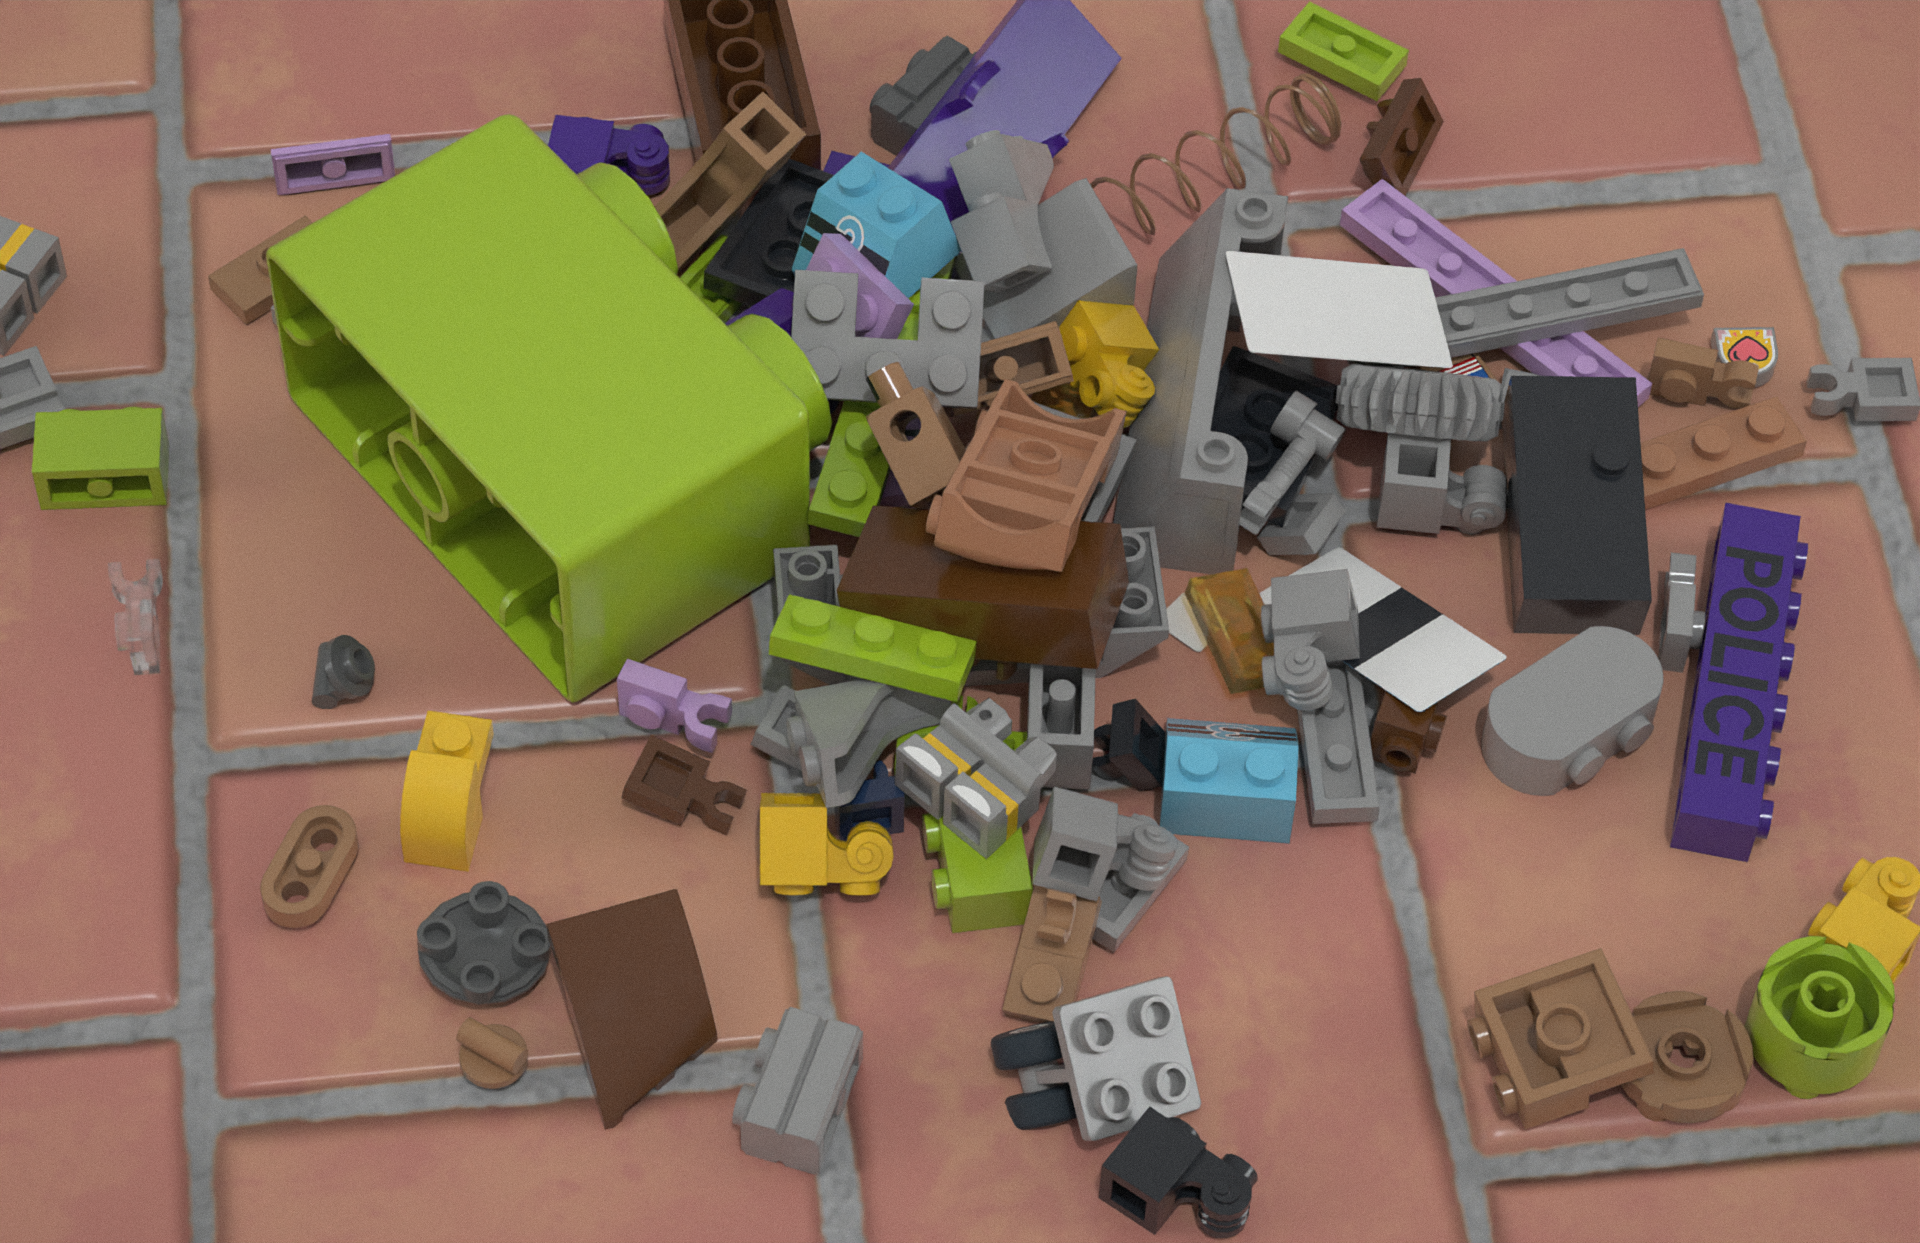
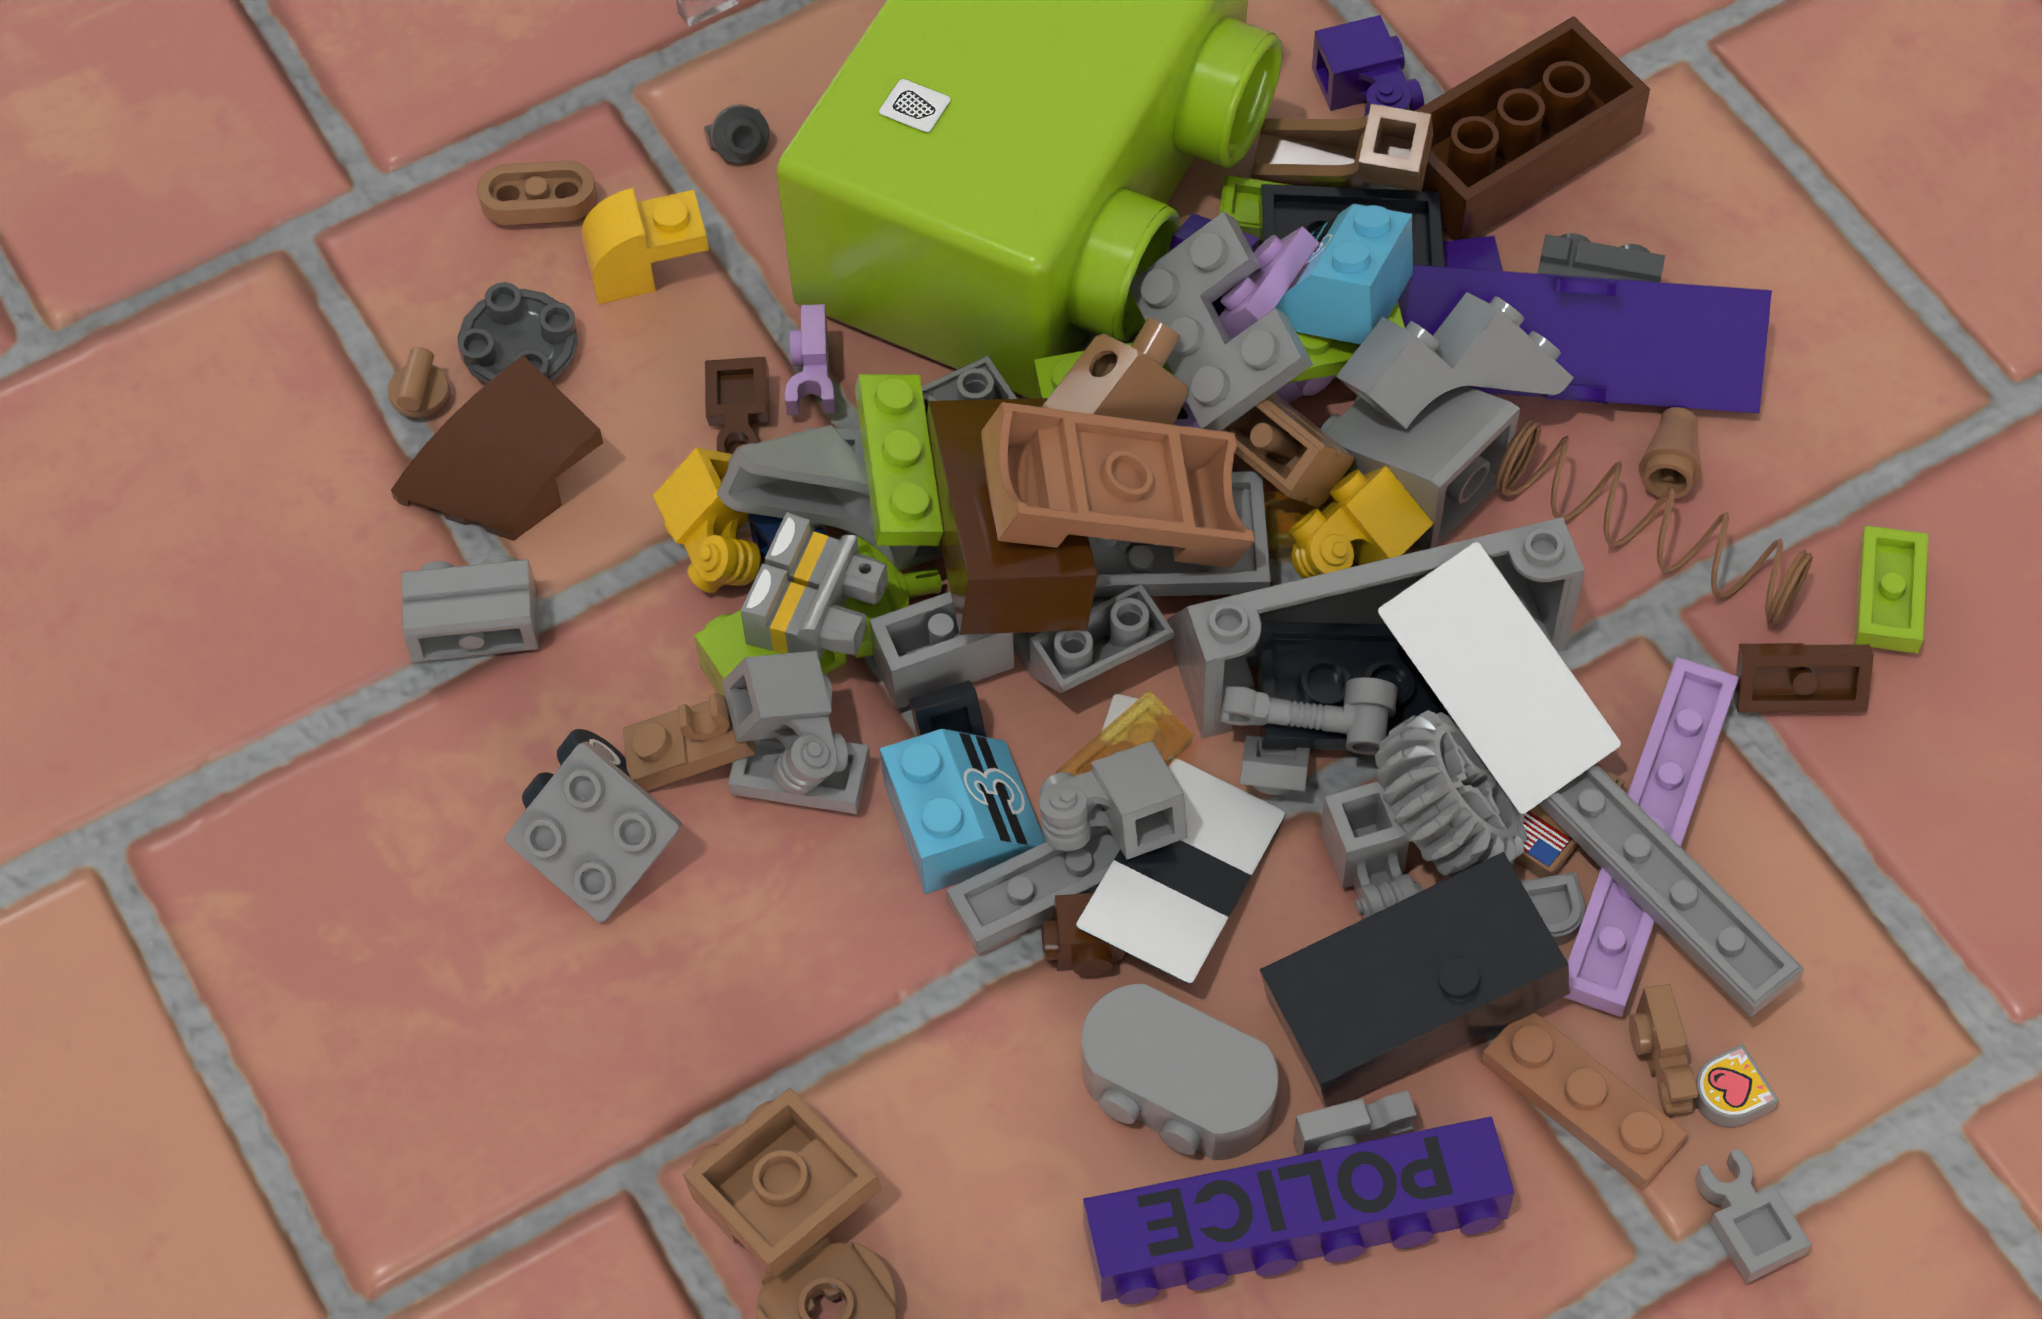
camera: 70 degrees right, 5 degrees up
(562, 429) = (914, 105): none -> white sticker
(1134, 128) = (1672, 455): none -> medium nougat cone
(1168, 1165) = (505, 911): black brick -> none

